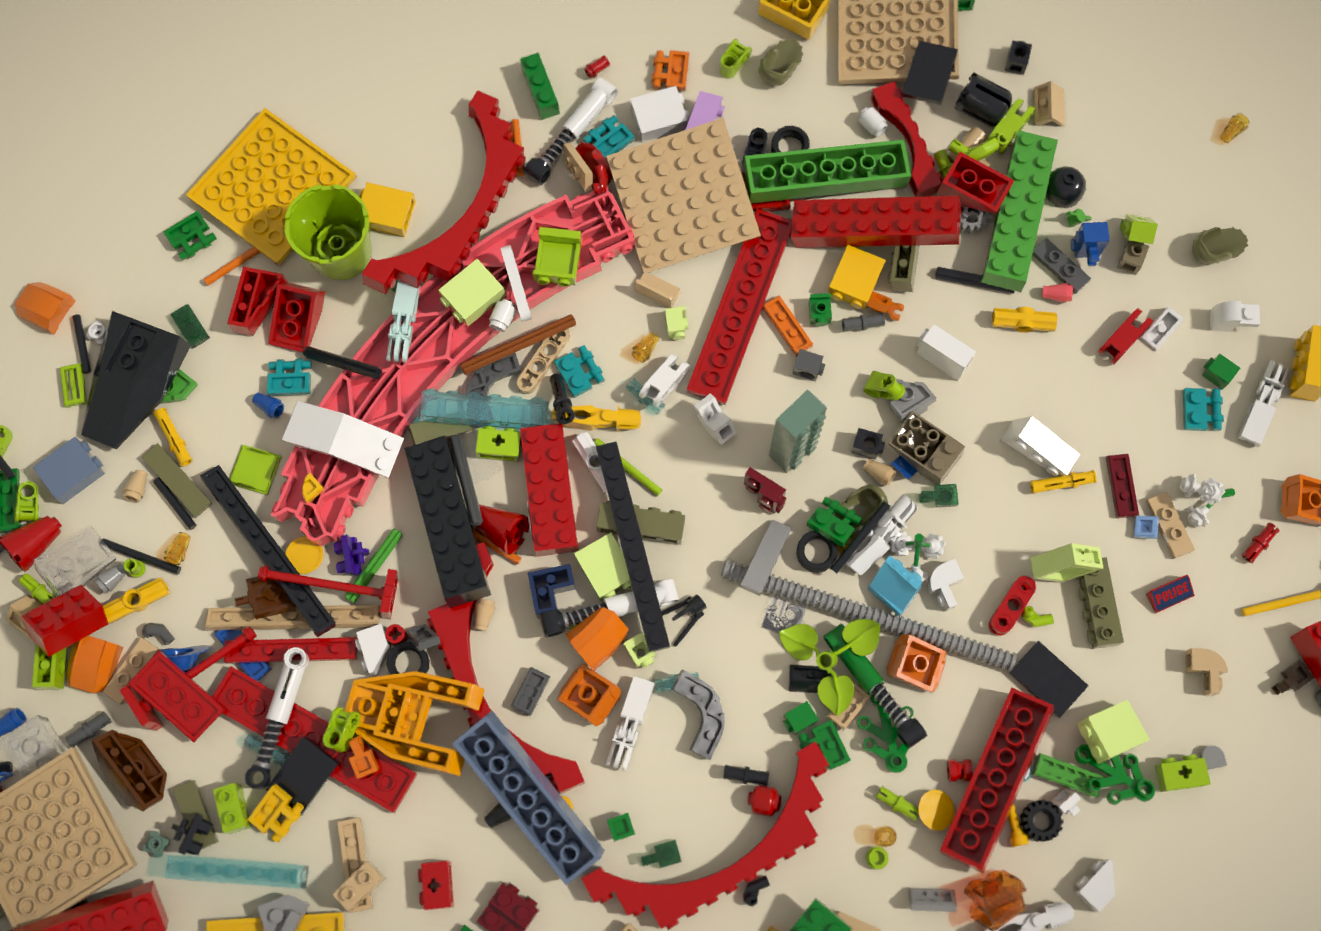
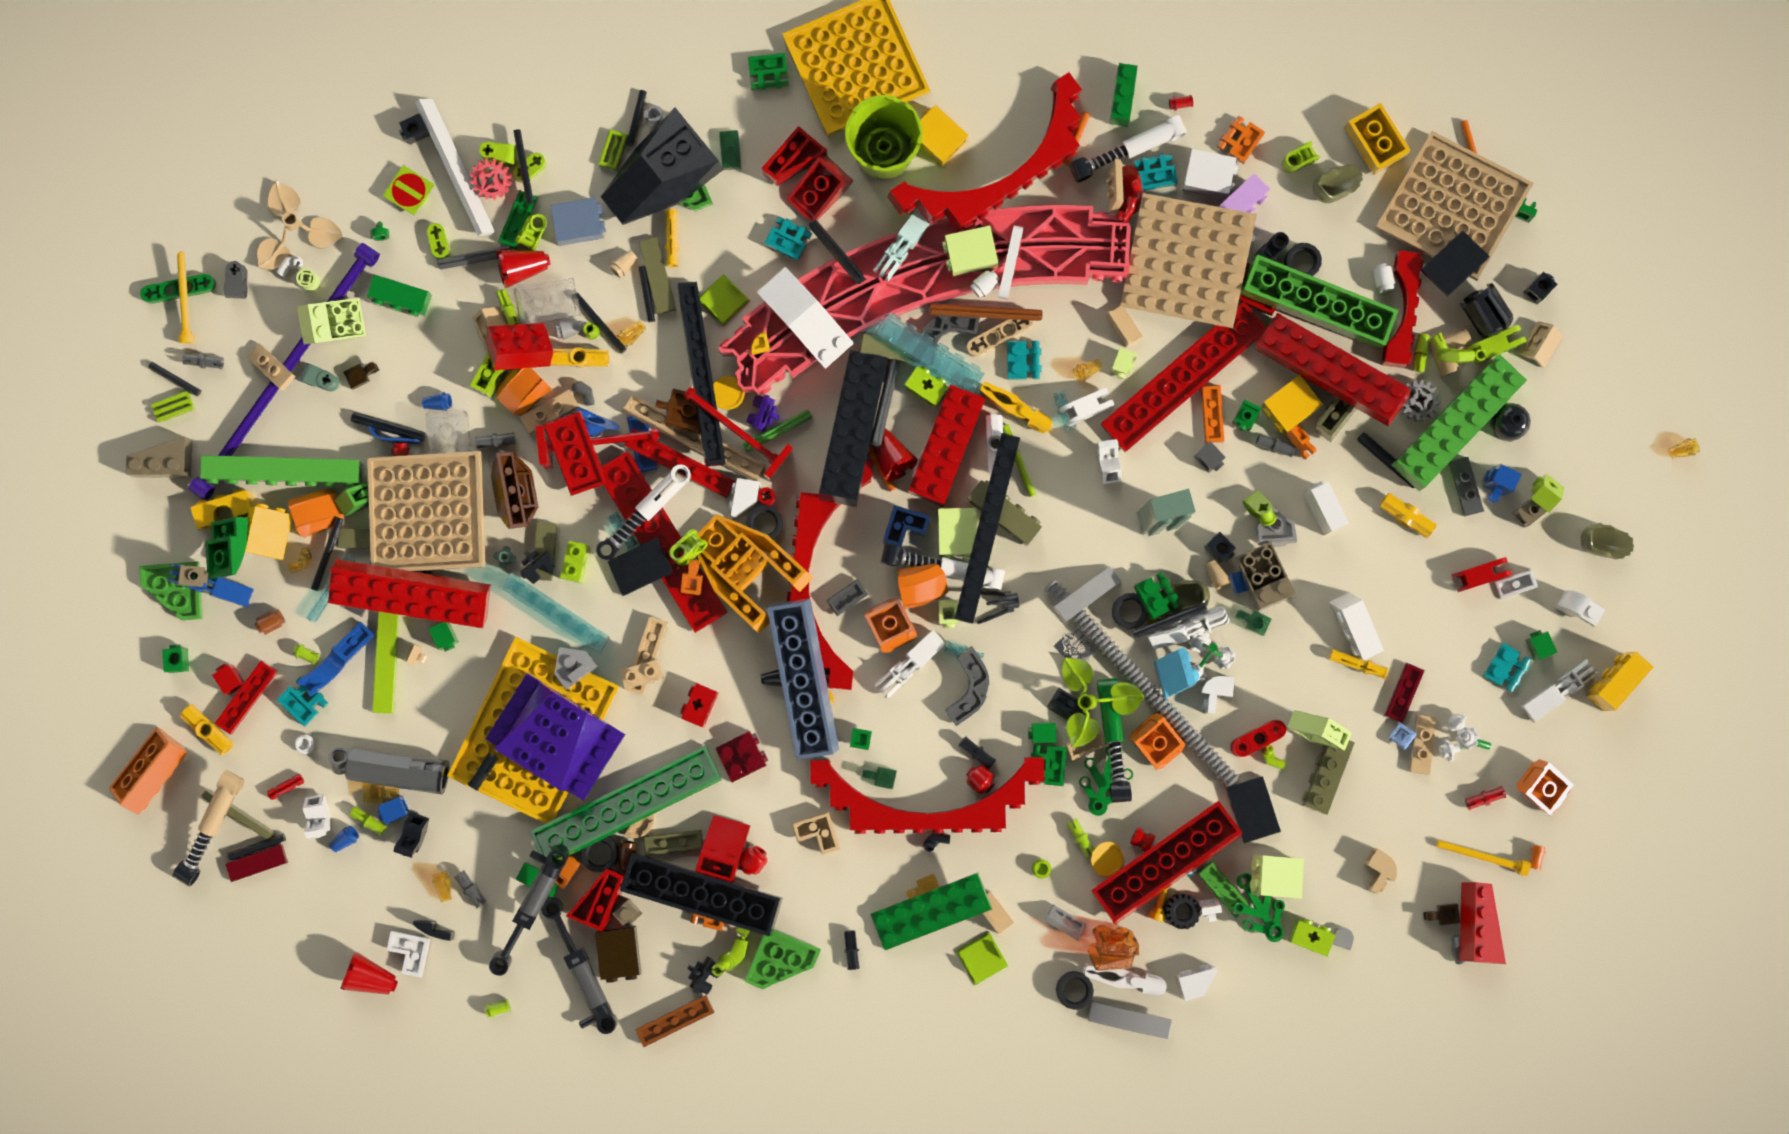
camera: 25 degrees right, 10 degrees up
(43, 305) = (621, 68): orange slope -> none
(231, 265) = (788, 115): orange bar -> none
(269, 405) = (760, 253): blue cone -> none
(269, 810) = (604, 578): yellow plate -> none
(423, 637) = (786, 510): dark grey plate -> none
(483, 613) = (843, 516): tan cone -> none
(557, 256) = (1056, 258): lime panel -> none
(562, 403) = (994, 382): black pin -> none
(770, 494) = (1118, 547): dark red plate -> none
(892, 838) = (1061, 860): clear yellow bush -> none
(975, 184) = (1433, 382): red slope -> none
(1058, 292) = (1449, 508): coral cone -> none
(1076, 217) = (1504, 453): bright green piece -> none
(1170, 593) = (1389, 798): slope -> none

